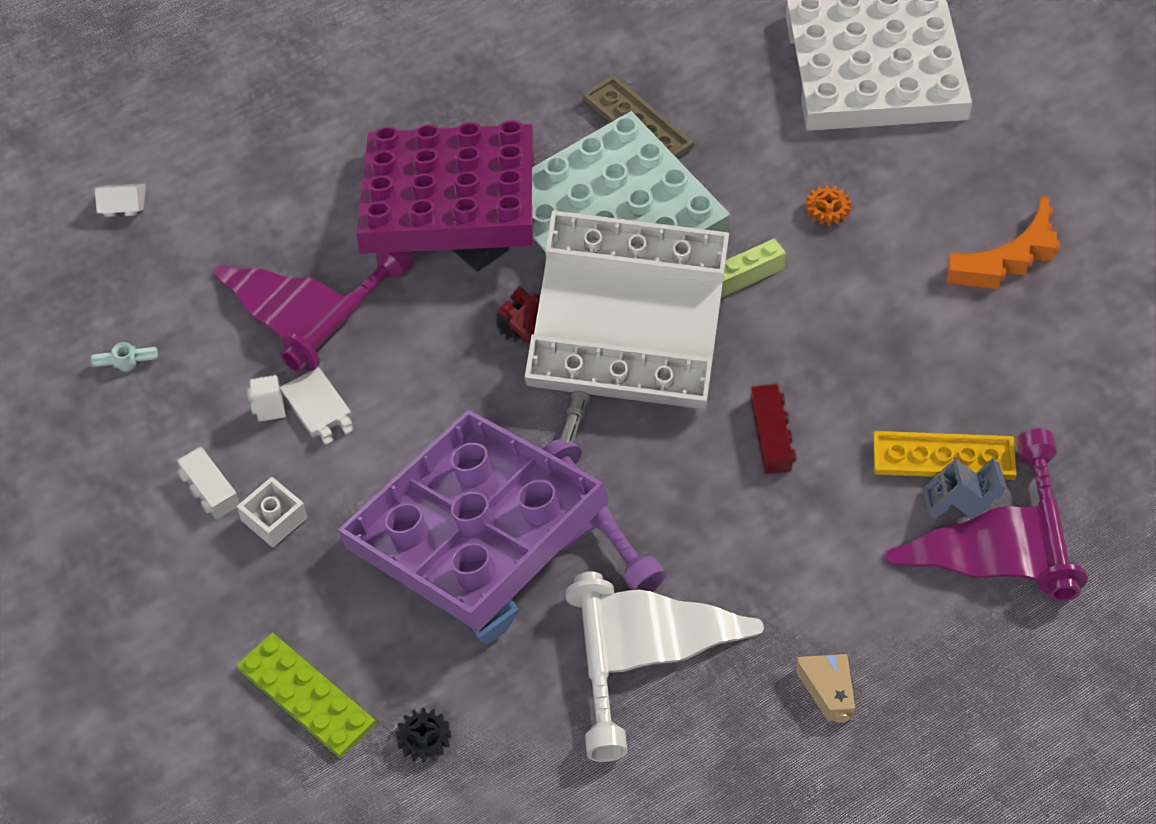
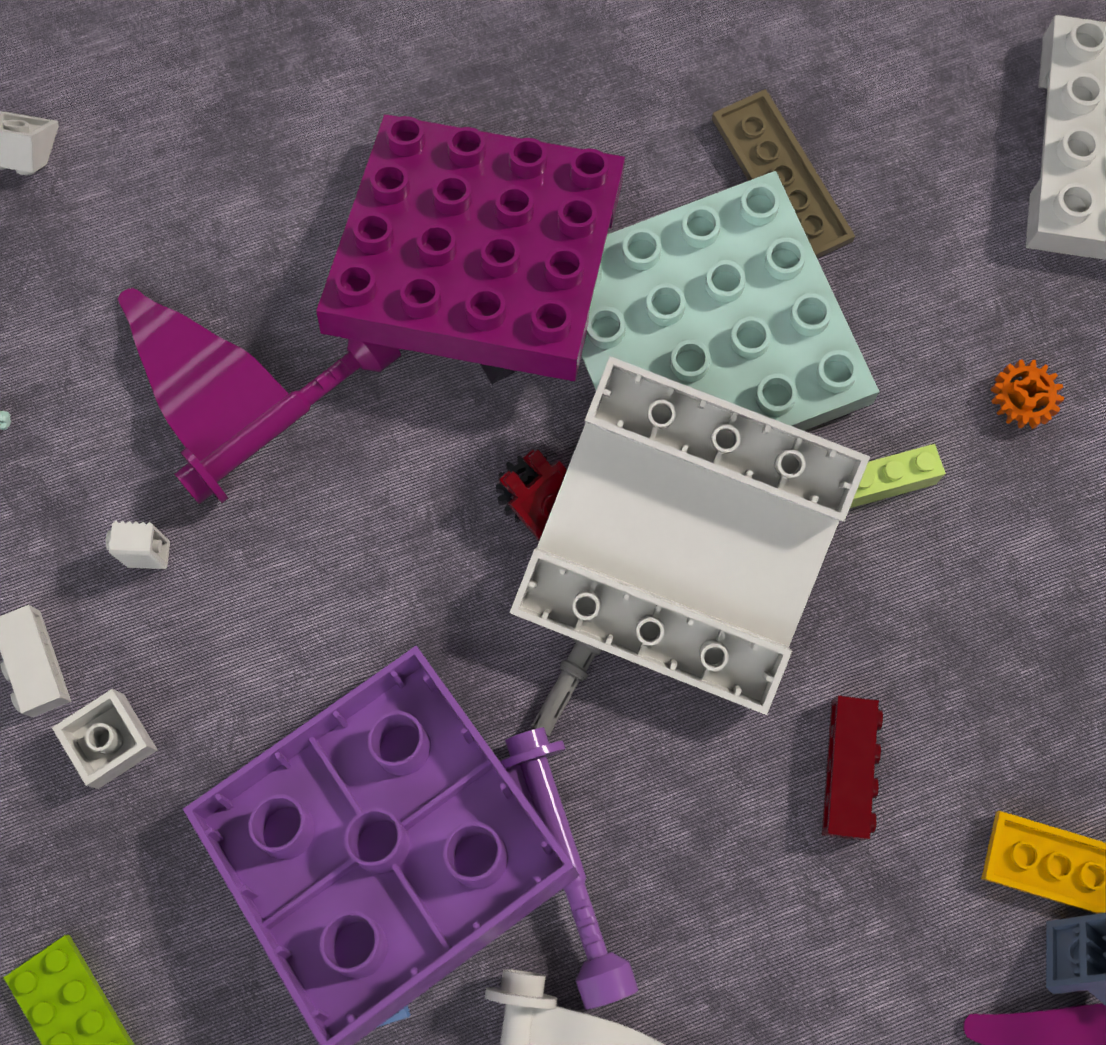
camera: 10 degrees right, 20 degrees up
(317, 405) = (214, 561): white tile -> none

